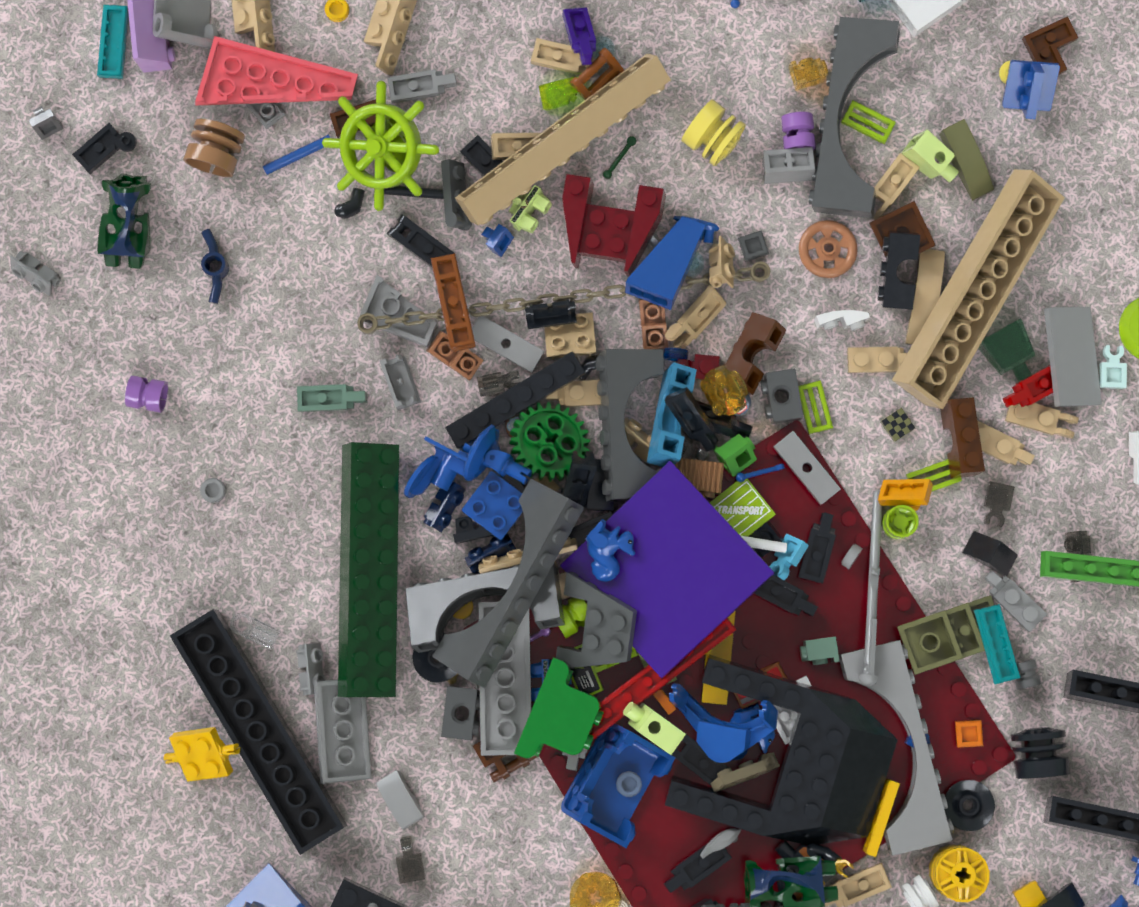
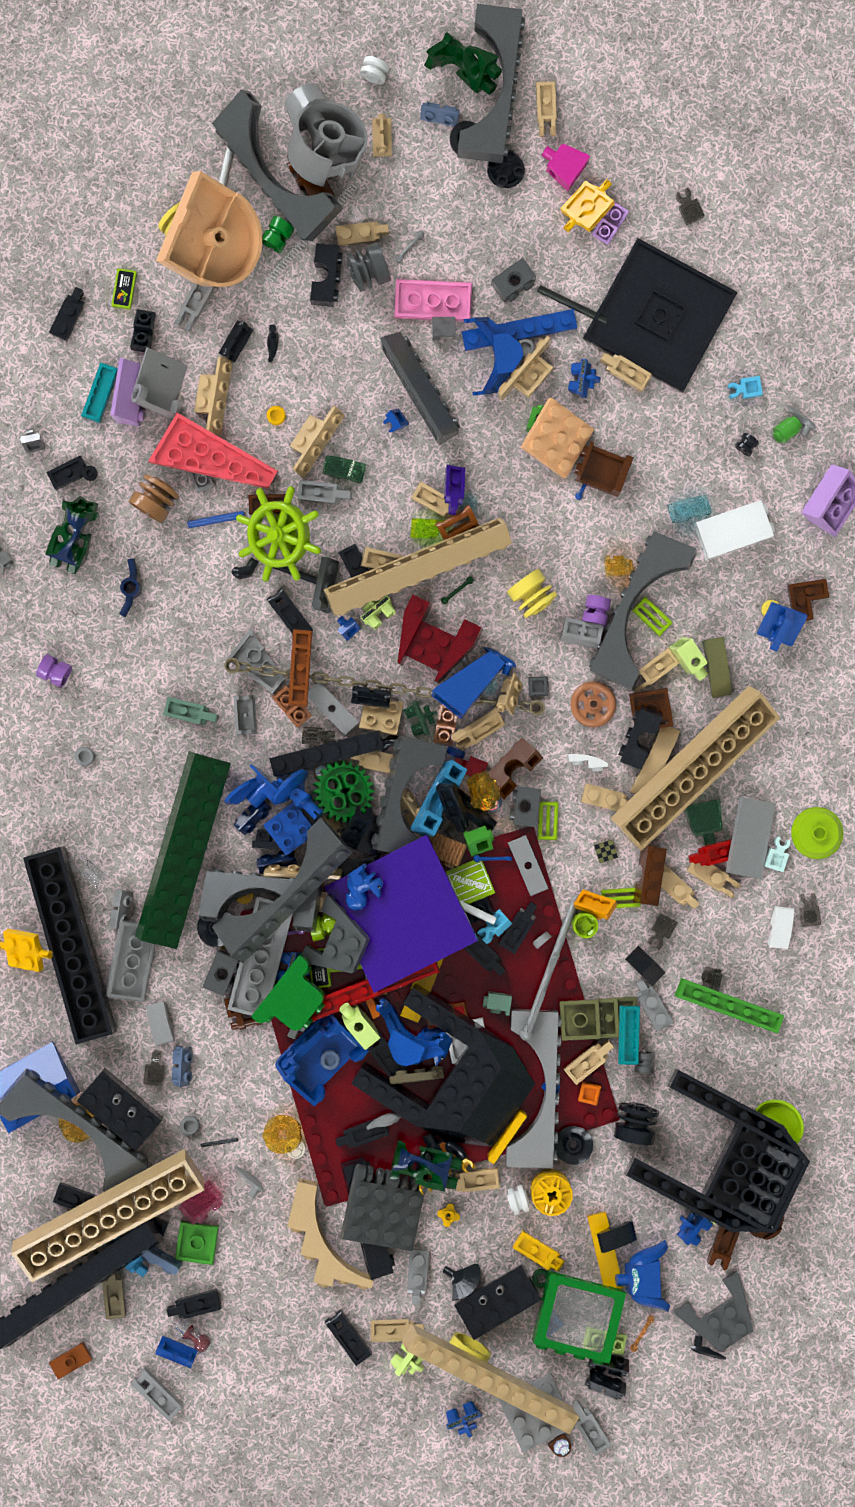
camera: 10 degrees right, 5 degrees up
(438, 48) = (344, 468): none -> clear green slope
(441, 835) = (182, 1075): none -> sand blue hinge
(624, 334) = (415, 710): none -> clear green hips
(956, 693) = (588, 1061): none -> tan hinge

